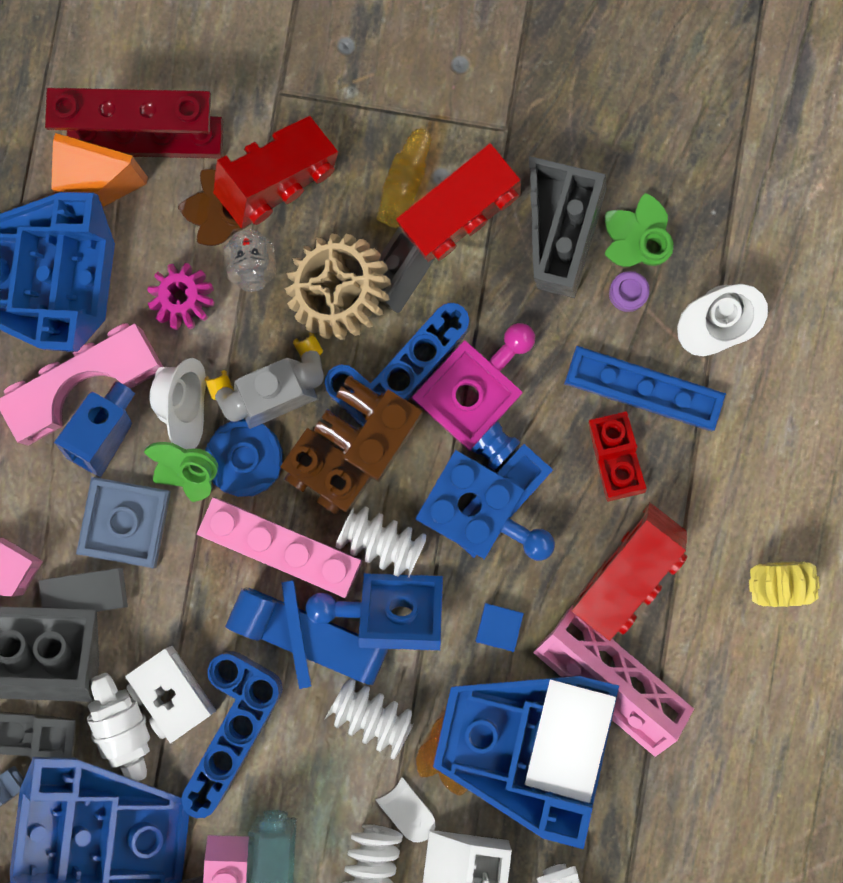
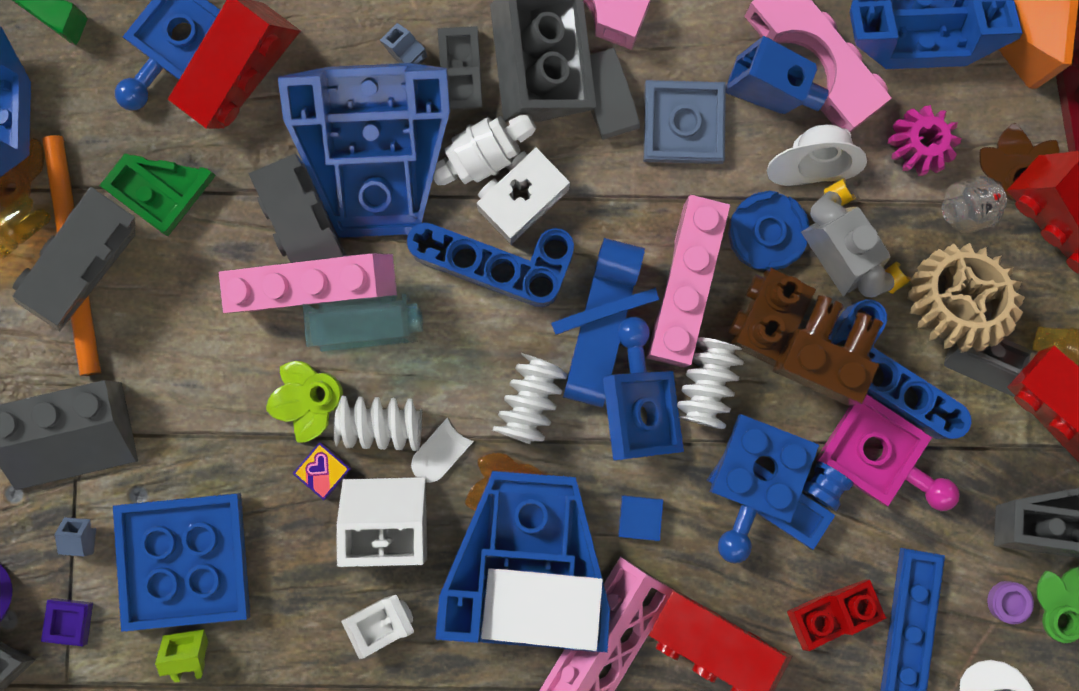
camera: 75 degrees right, 0 degrees up
(185, 468) = (751, 171): bright green plate -> none

